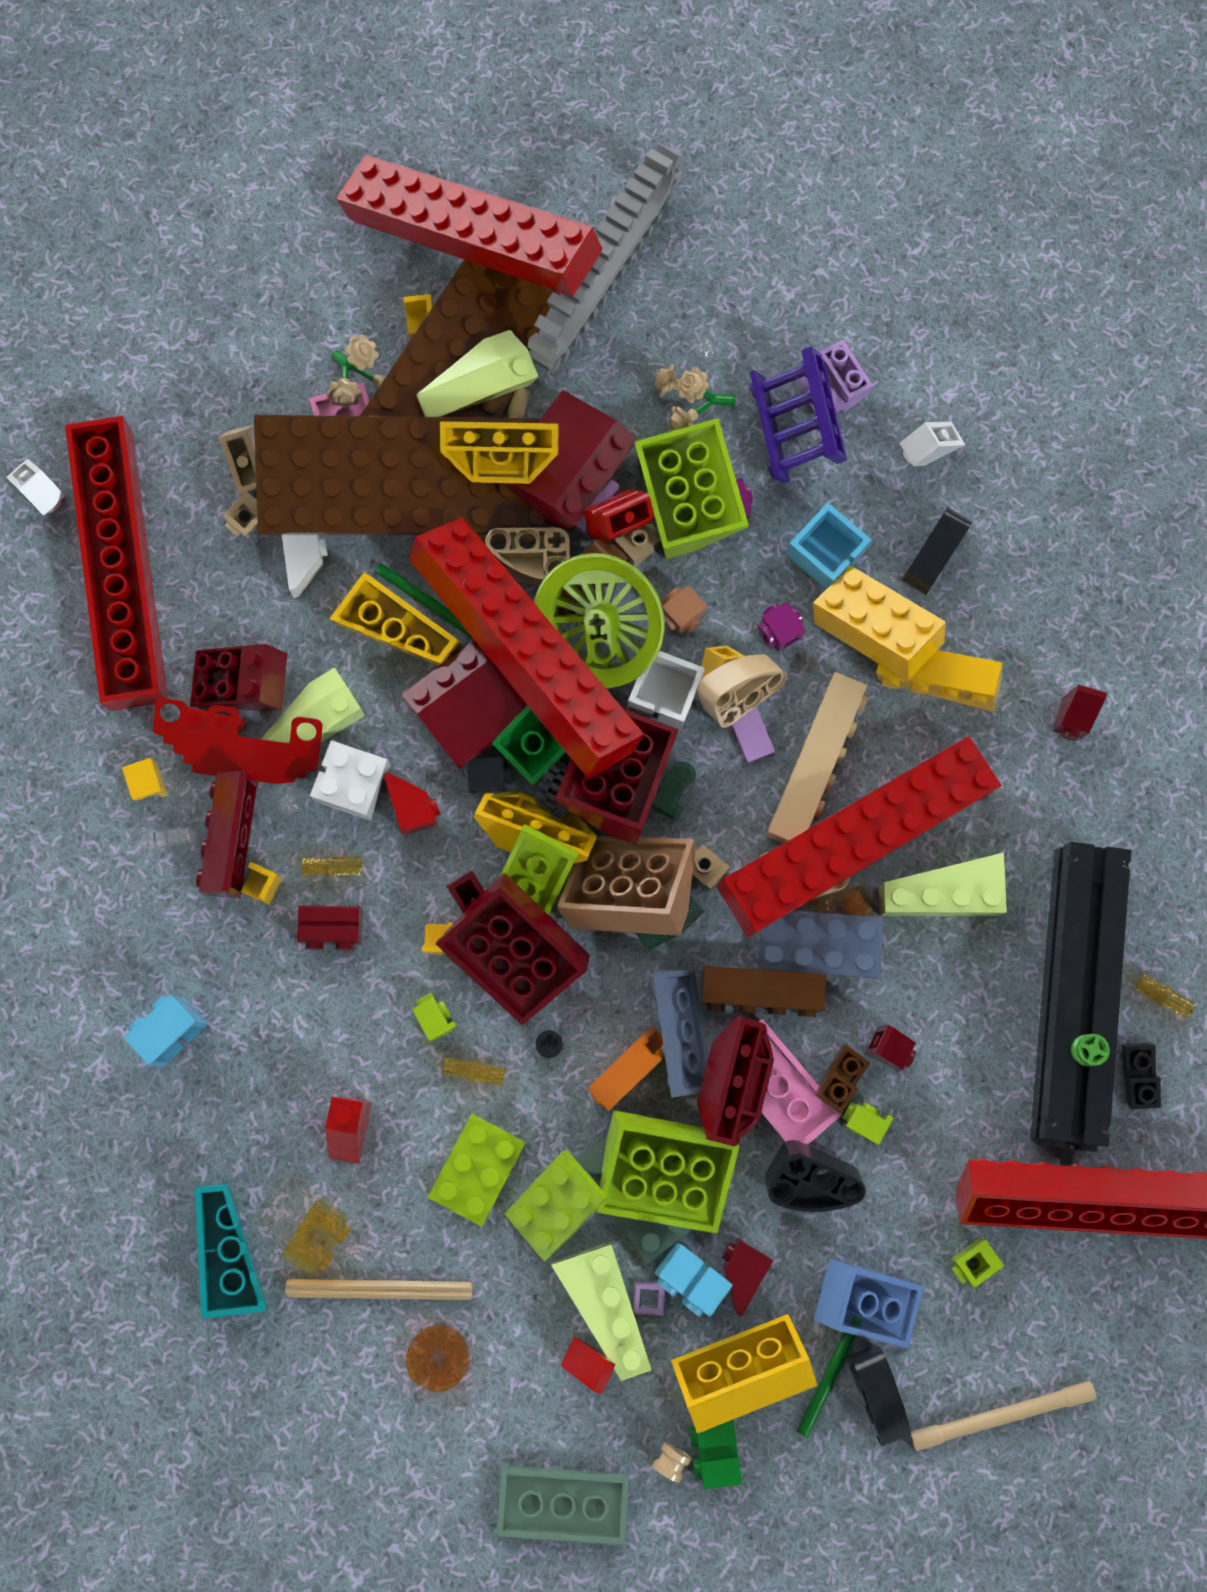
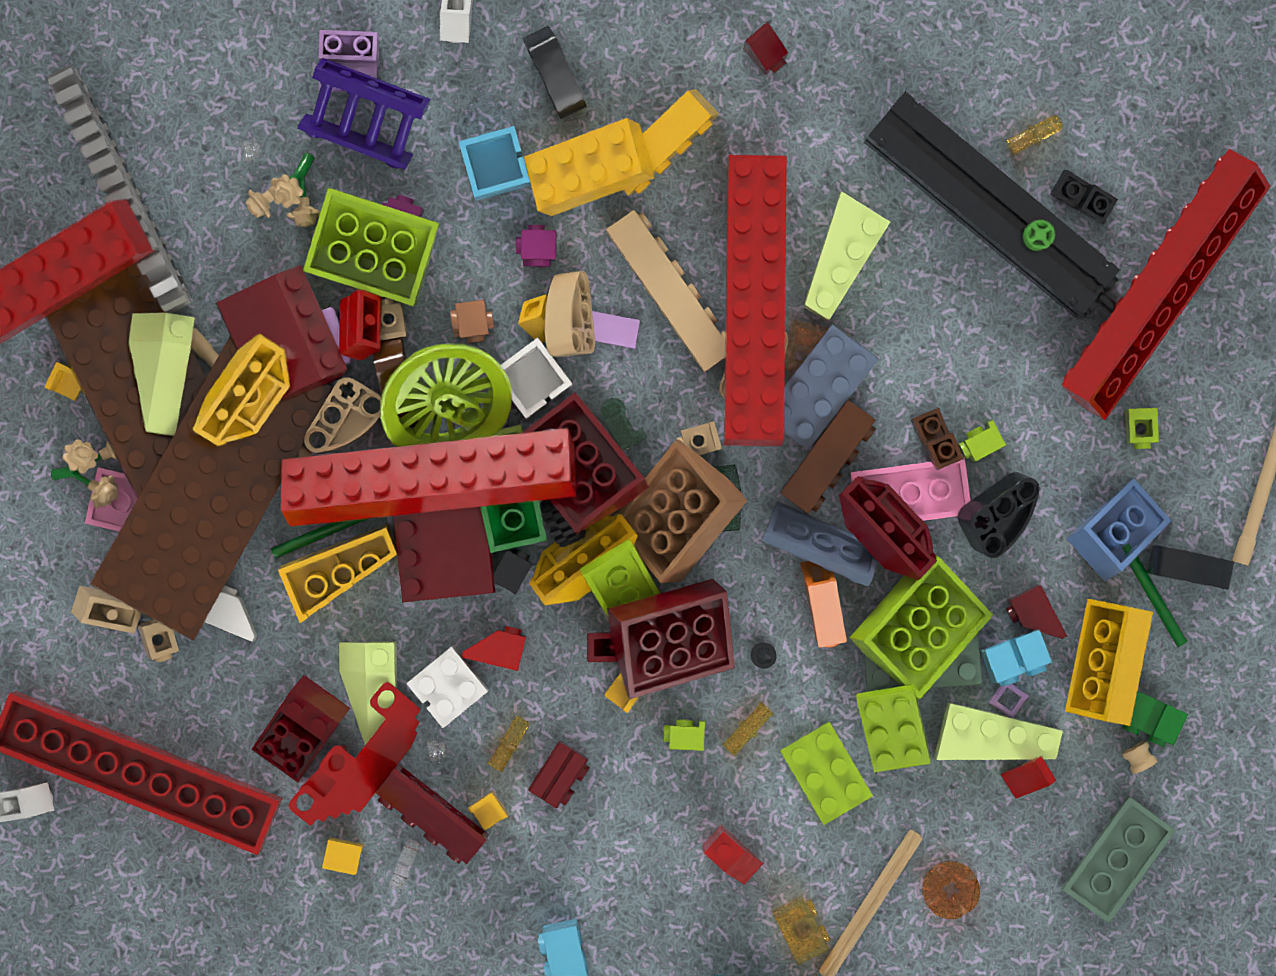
camera: 55 degrees left, 10 degrees up
(892, 1048) = (939, 384): dark red slope -> none

